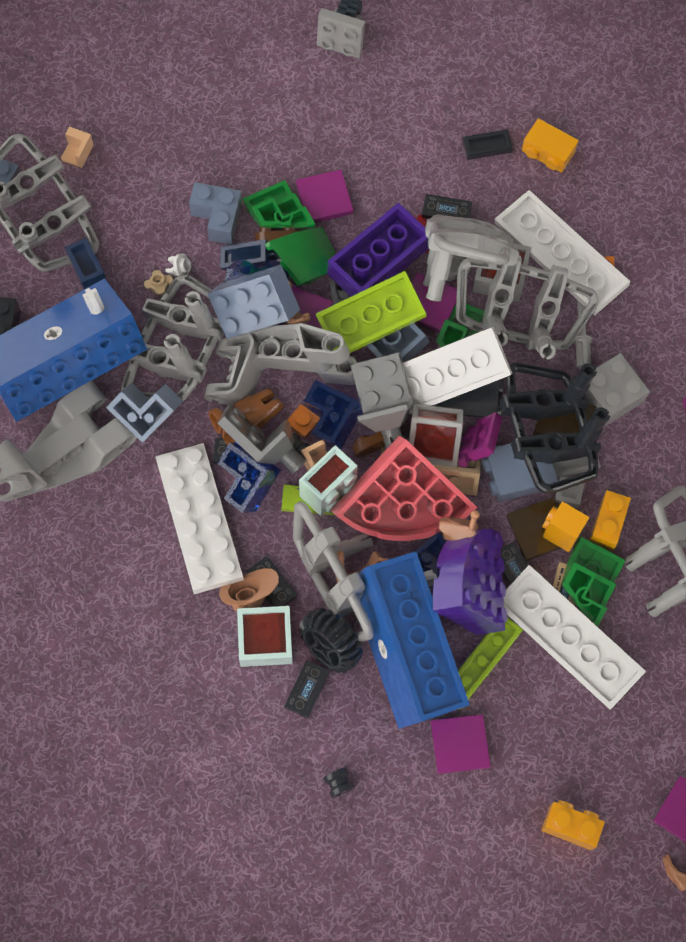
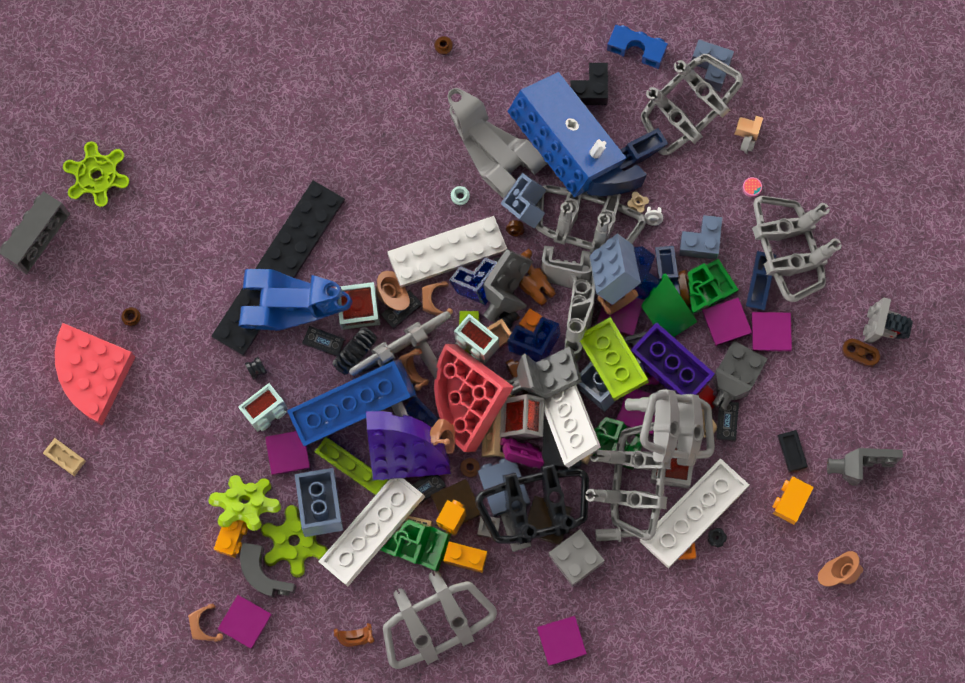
camera: 95 degrees right, 5 degrees up
(99, 151) = (747, 144): none -> light grey plate
(121, 490) = (456, 191): none -> light aqua plate
(132, 296) = (617, 182): none -> dark blue slope
(154, 154) = (752, 187): none -> tile
(176, 430) = (515, 228): none -> reddish brown plate
(197, 747) = (284, 255): none -> black plate
(215, 115) = (790, 228): none -> light grey piece
(250, 725) = (289, 301): none -> blue piece
(263, 547) = (426, 297): none -> nougat helmet
(275, 154) = (759, 283): none -> dark blue slope
(341, 149) = (771, 331): none -> magenta tile
(372, 61) = (861, 350): none -> reddish brown plate
(384, 187) = (736, 374): none -> dark grey plate
(400, 769) = (263, 408): none -> light aqua piece
(487, 516) = (472, 473): none -> reddish brown plate
(512, 74) = (852, 463): none -> dark grey plate
(534, 700) = (318, 502): none -> sand blue brick
(543, 814) = (246, 512): none -> lime plate
(570, 759) = (283, 550): none -> lime plate
(591, 228) = (717, 532): none -> black plate
(618, 799) = (251, 566): none -> dark grey arch
(632, 106) = (842, 569): none -> nougat piece

